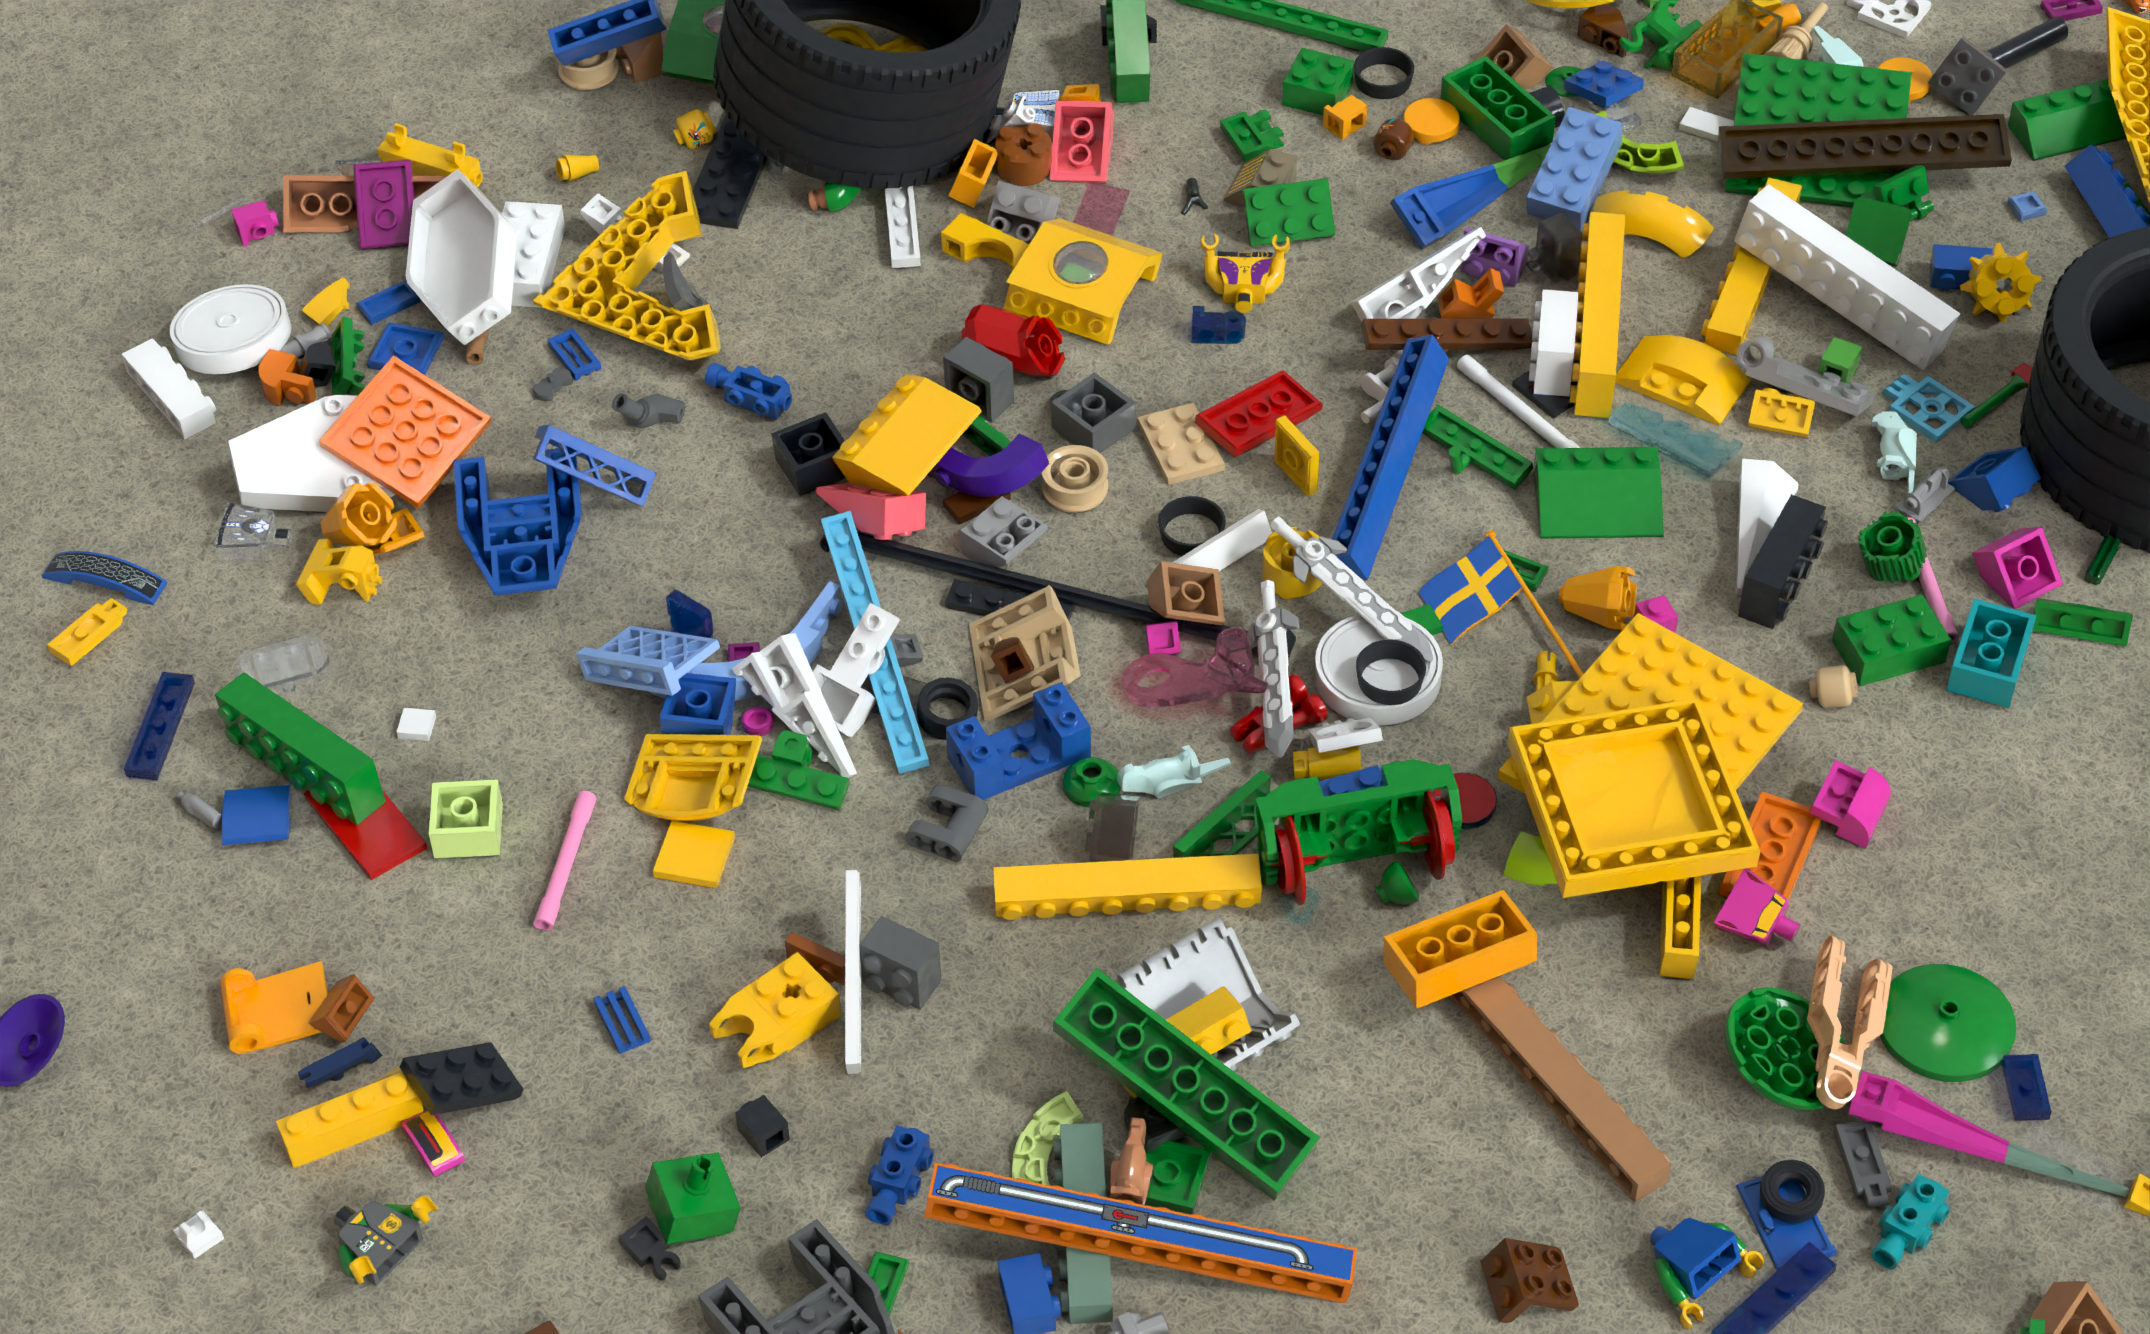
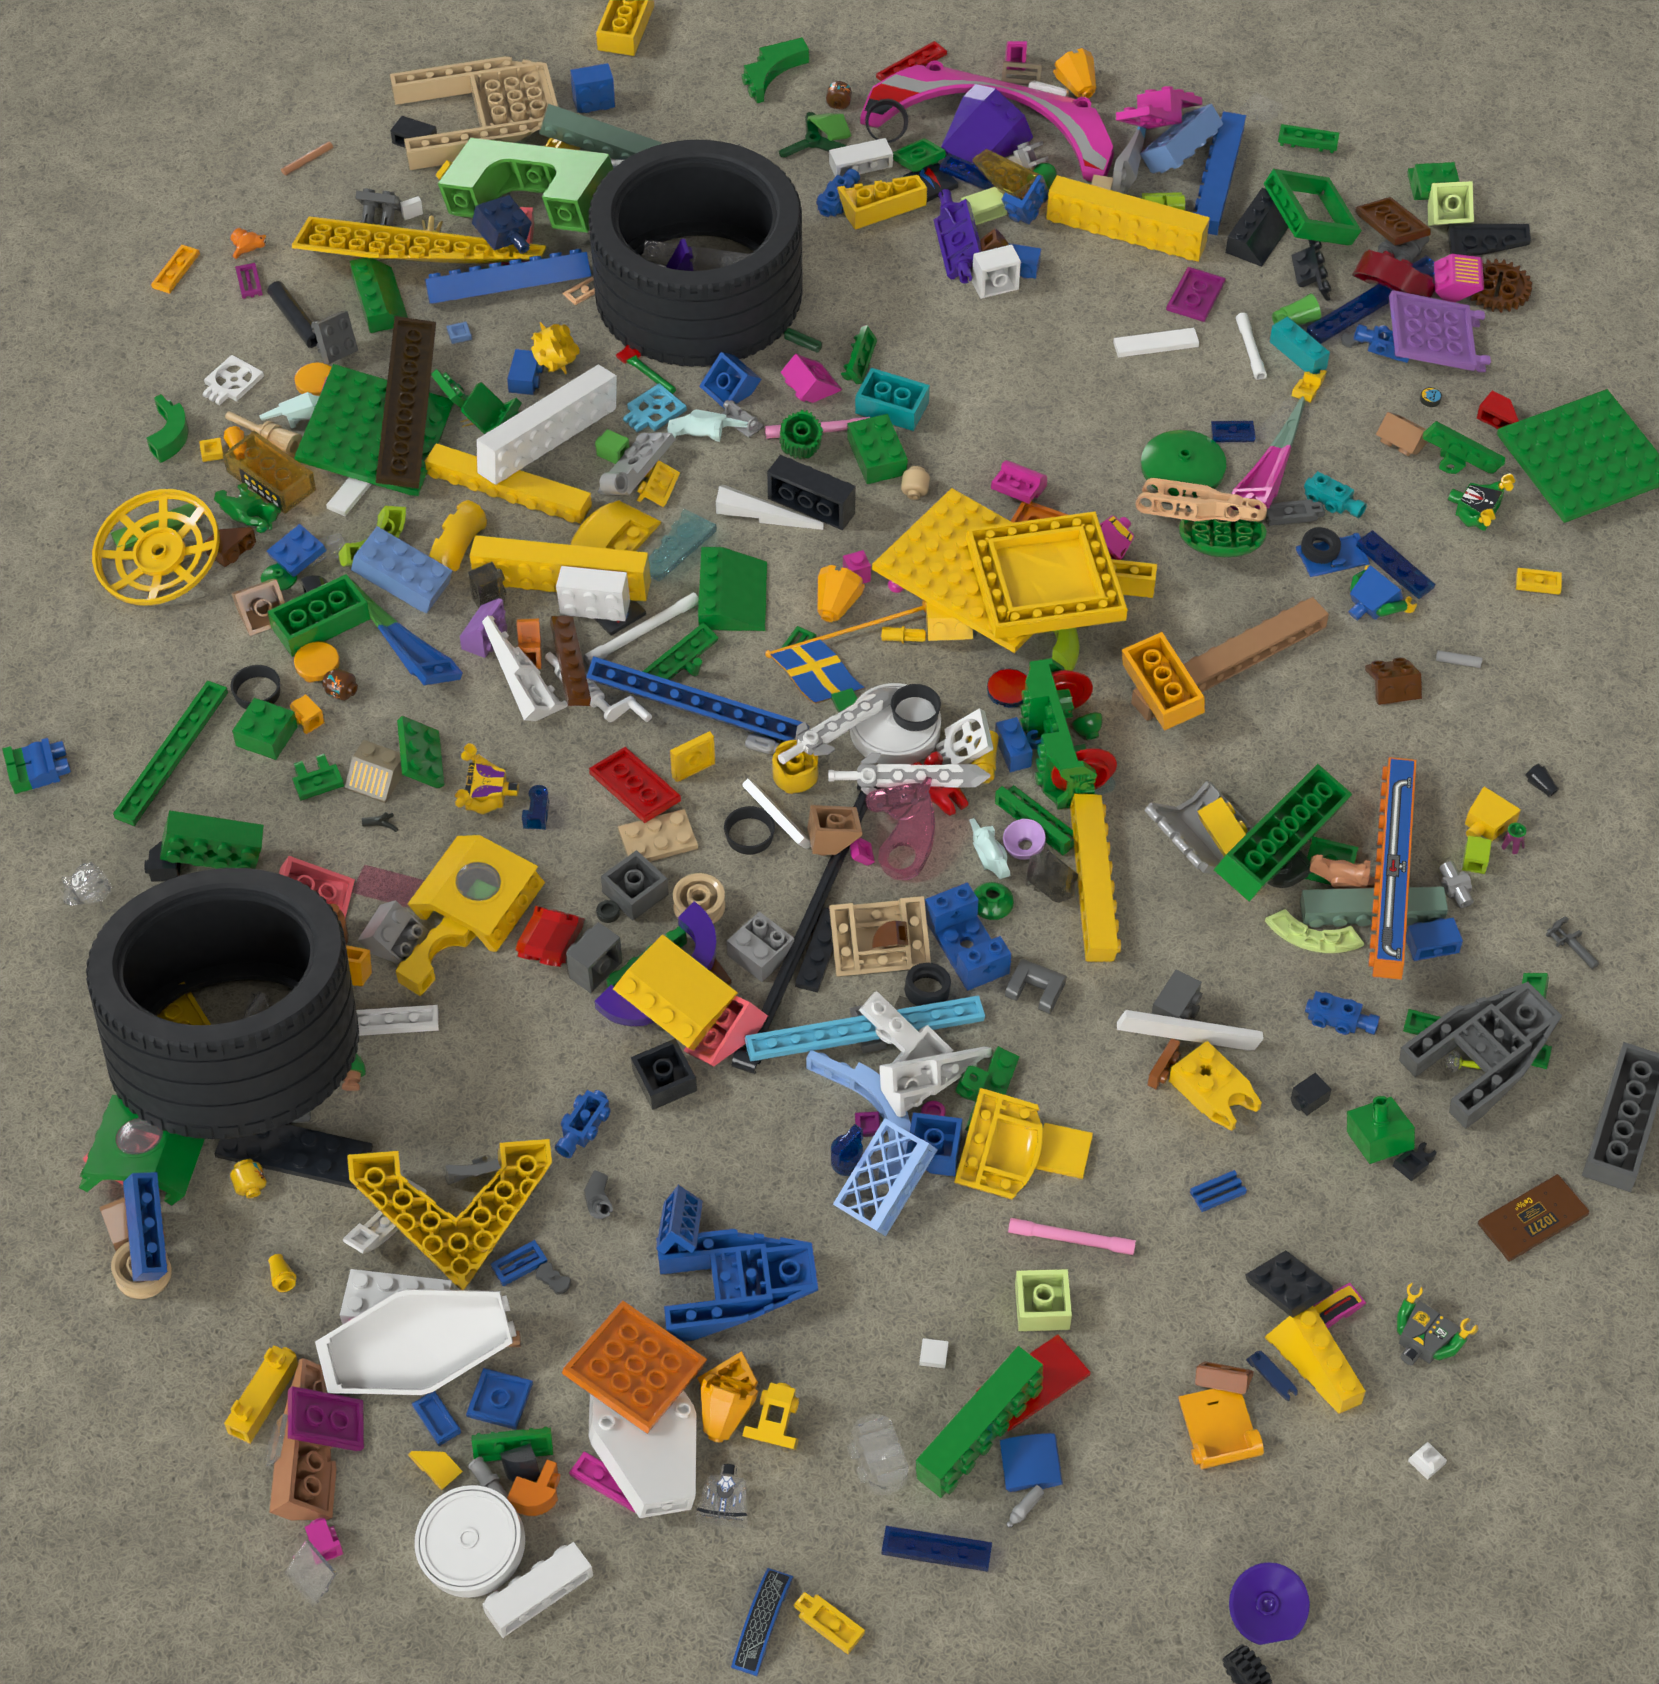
camera: 90 degrees left, 5 degrees up
(1182, 799) = (1024, 830): none -> lavender piece

